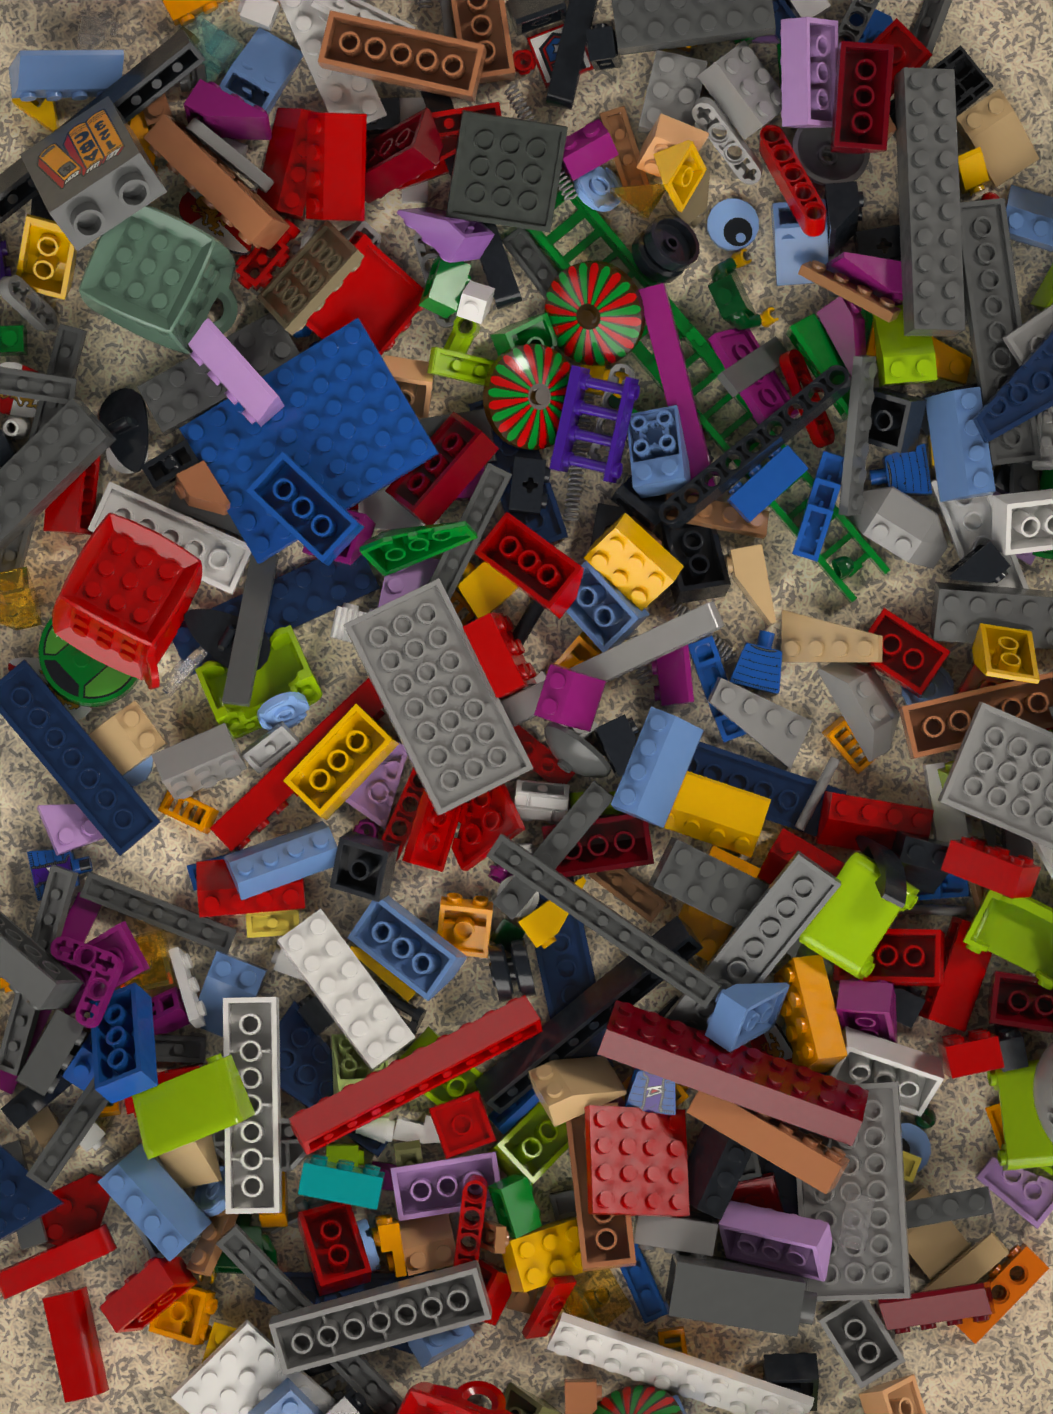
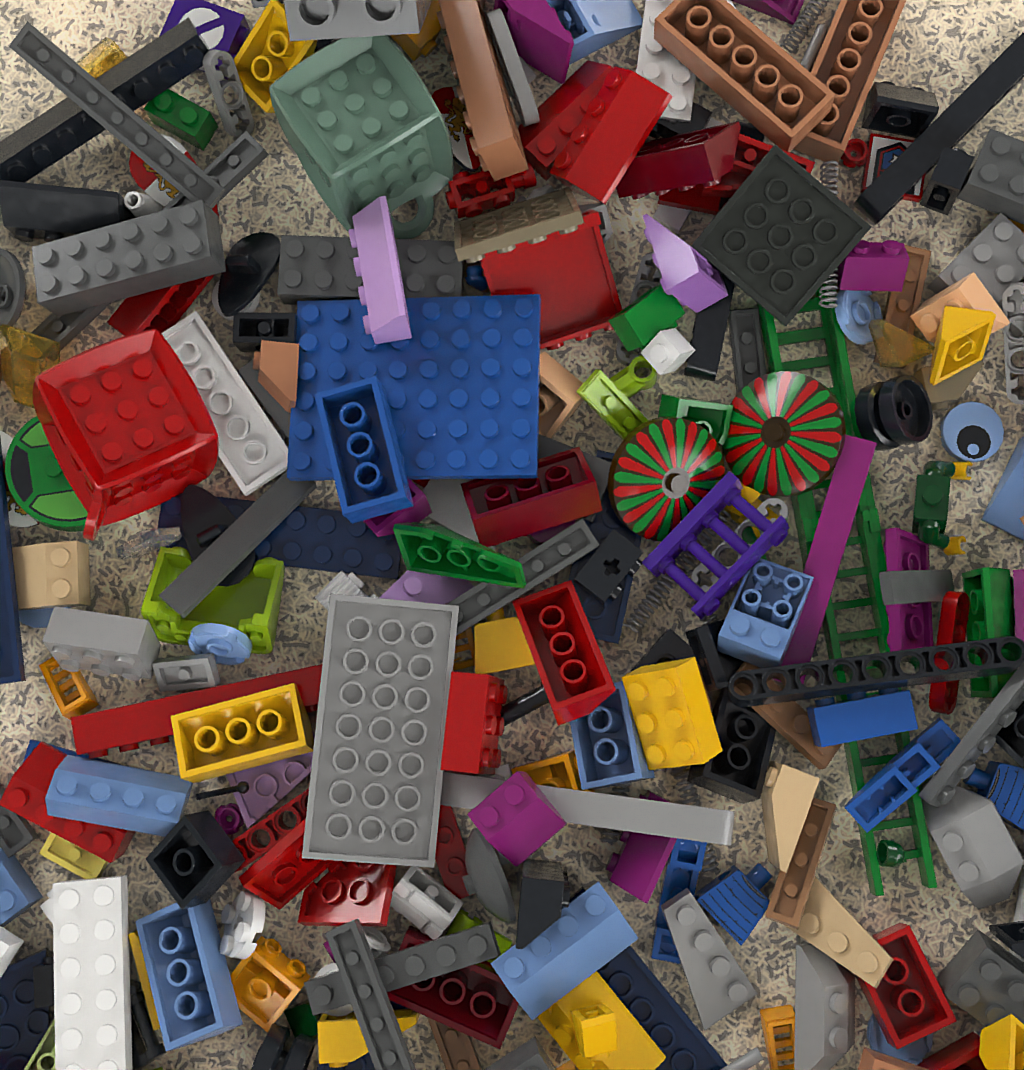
camera: 40 degrees right, 5 degrees down
(363, 801) = (242, 788): none -> black hinge
(423, 894) = (241, 923): none -> white plate
(709, 807) = (595, 1031): none -> yellow slope
(787, 610) = (793, 887): none -> medium nougat plate

